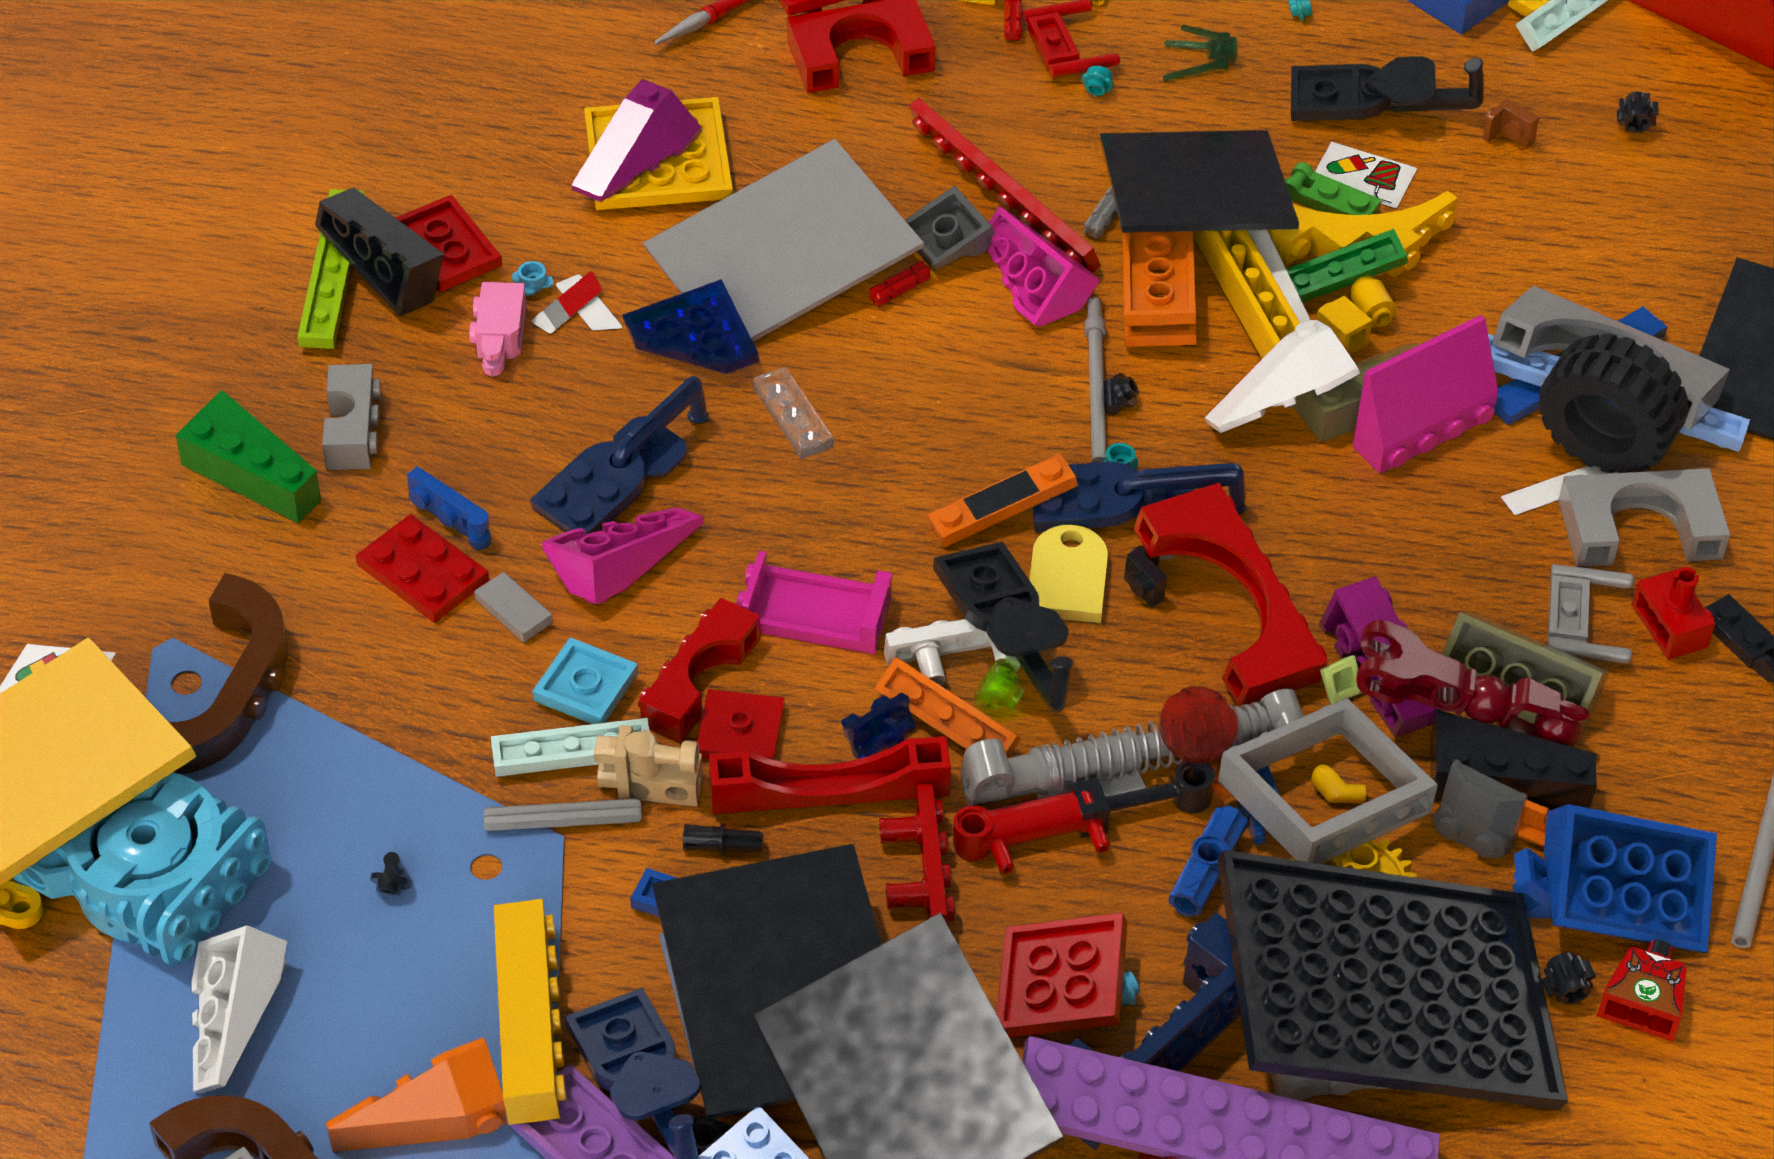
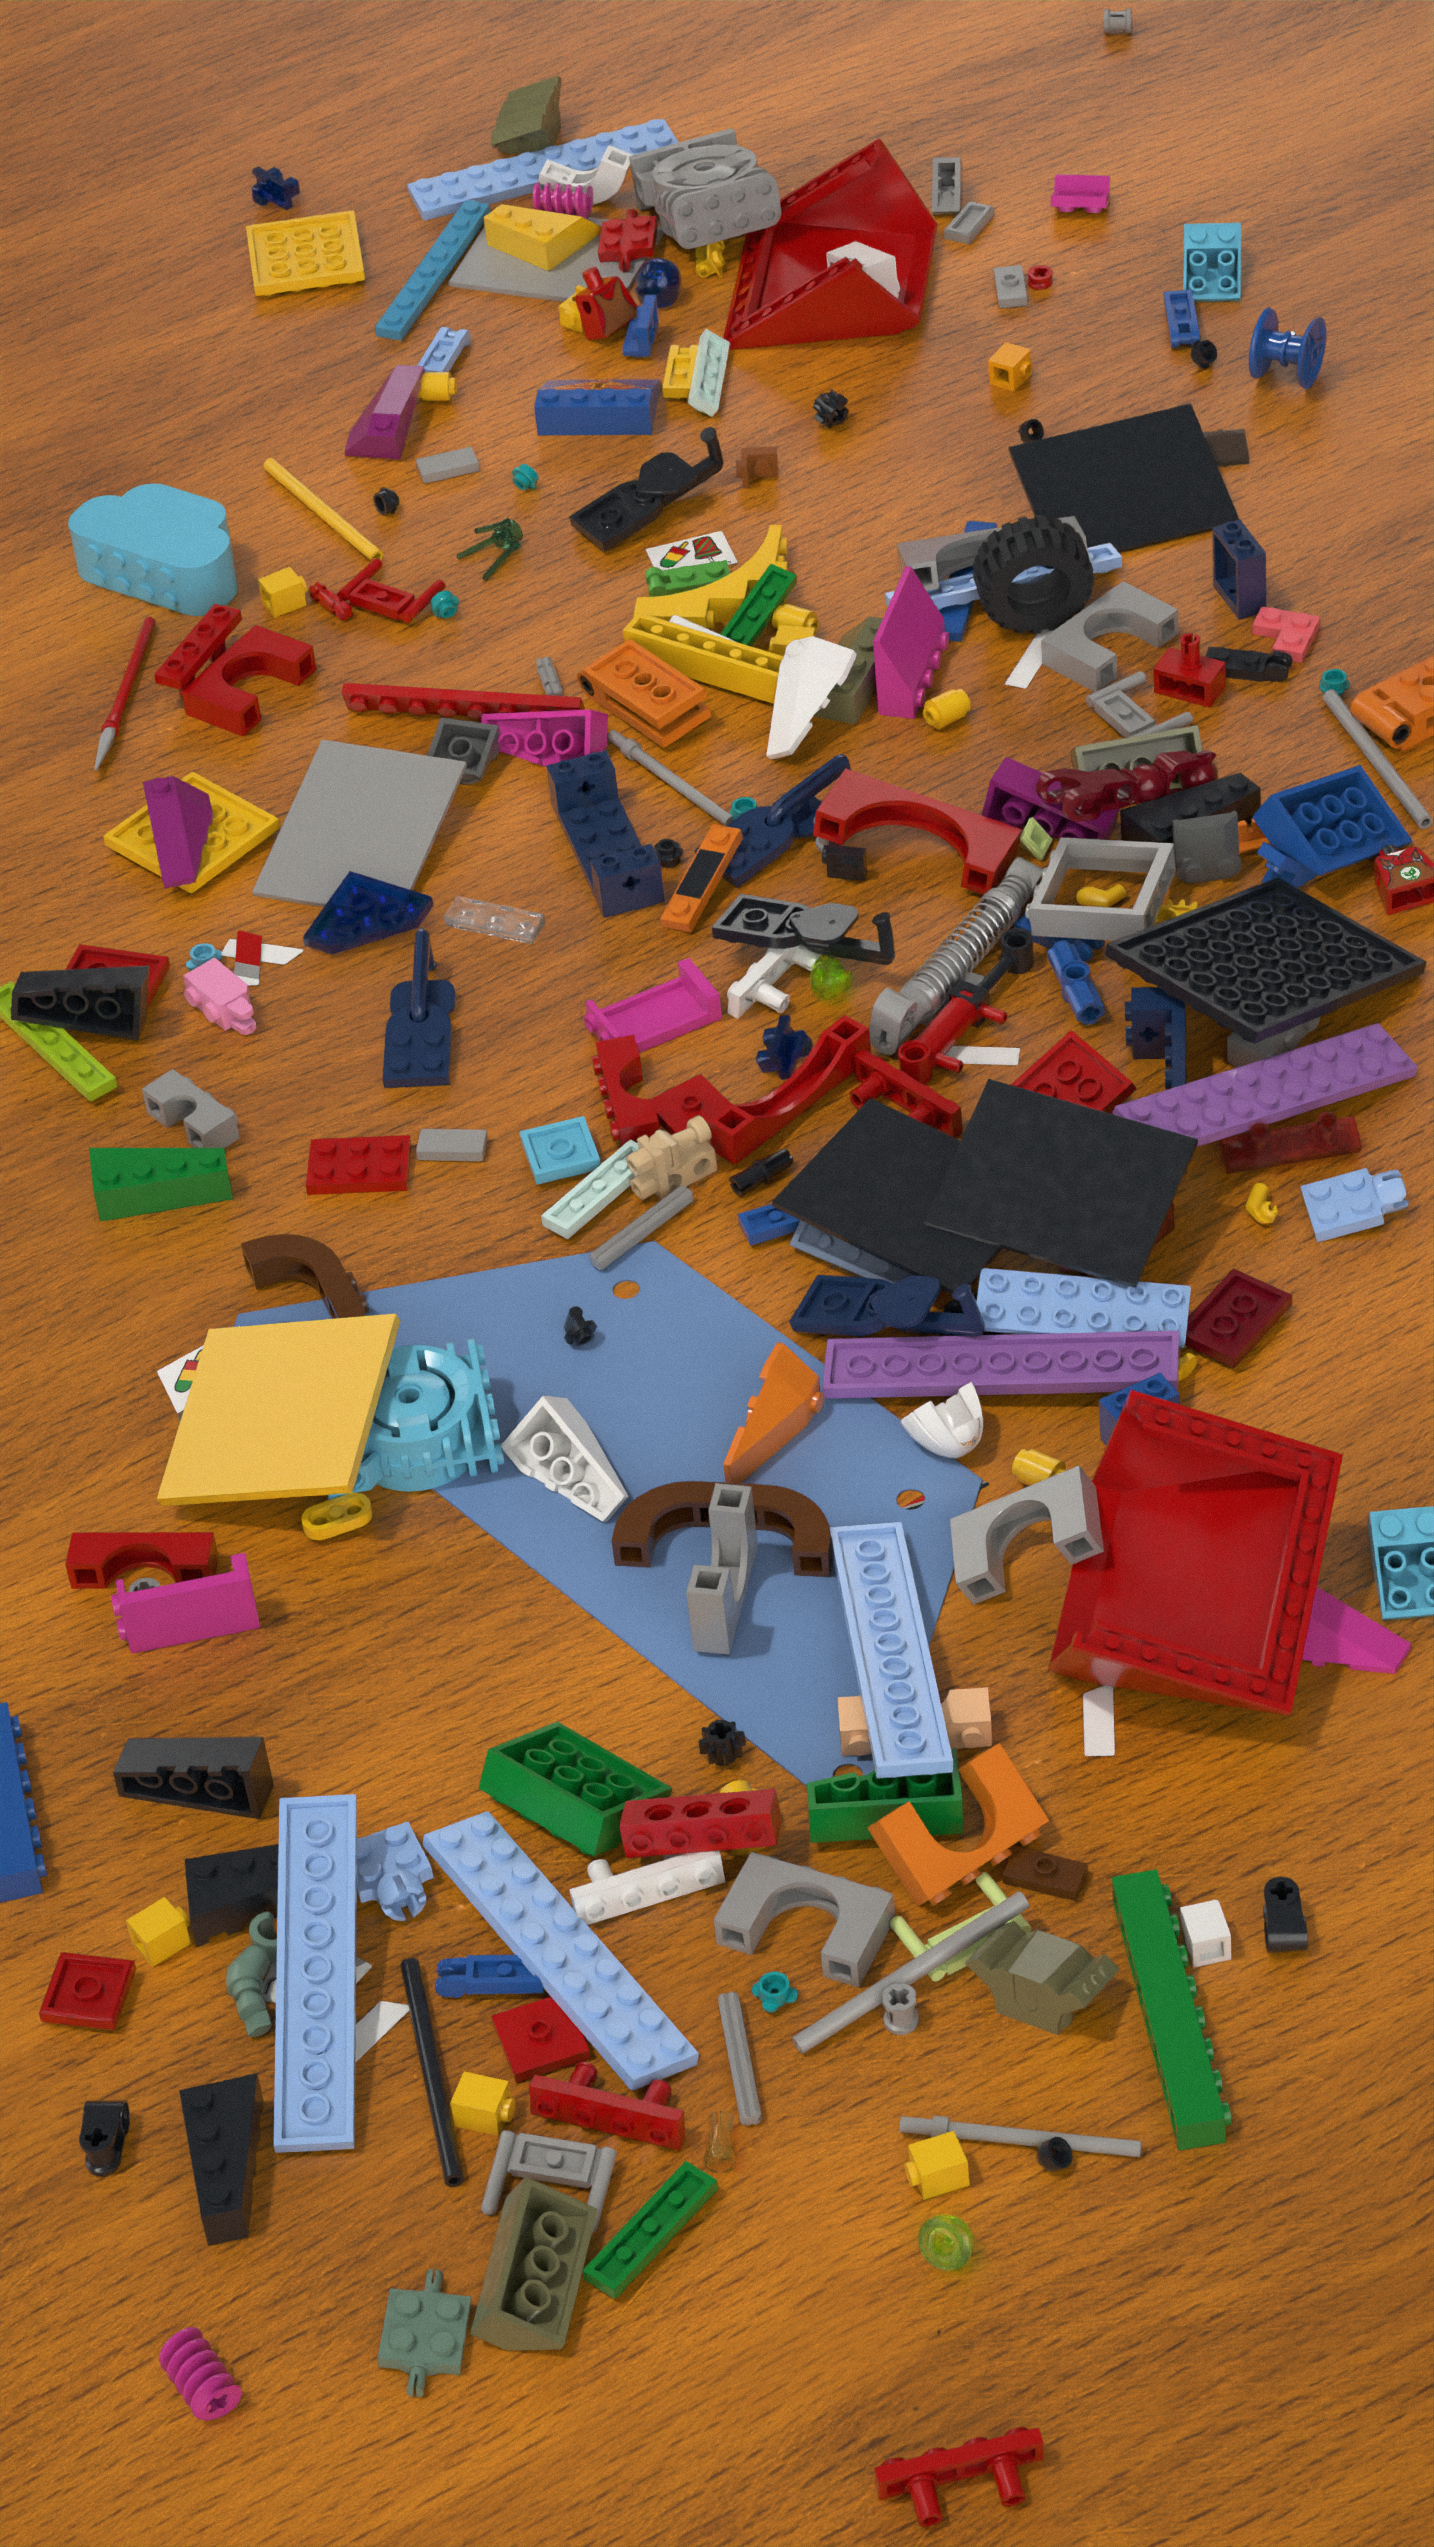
camera: 35 degrees left, 5 degrees down
(449, 507) = (335, 1117): blue plate -> none
(527, 1012) = (762, 1322): yellow brick -> none
(614, 558) = (485, 1071): dark pink wedge -> none
(899, 283) = (465, 805): red axle -> none
(942, 708) = (812, 1012): orange plate -> none
(973, 399) = (601, 836): none -> dark blue plate
(1010, 453) = (668, 852): none -> black plate
(1050, 869) = (985, 1055): none -> white sticker
(1070, 577) = (791, 884): light yellow tile -> none
(1120, 392) = (695, 774): black plate -> none
(1197, 181) = (600, 616): black piece -> none
(1198, 724) = (991, 908): clear red tile -> none
(1410, 484) = (946, 708): none -> yellow brick
(1568, 978) = (1355, 900): black gear -> none

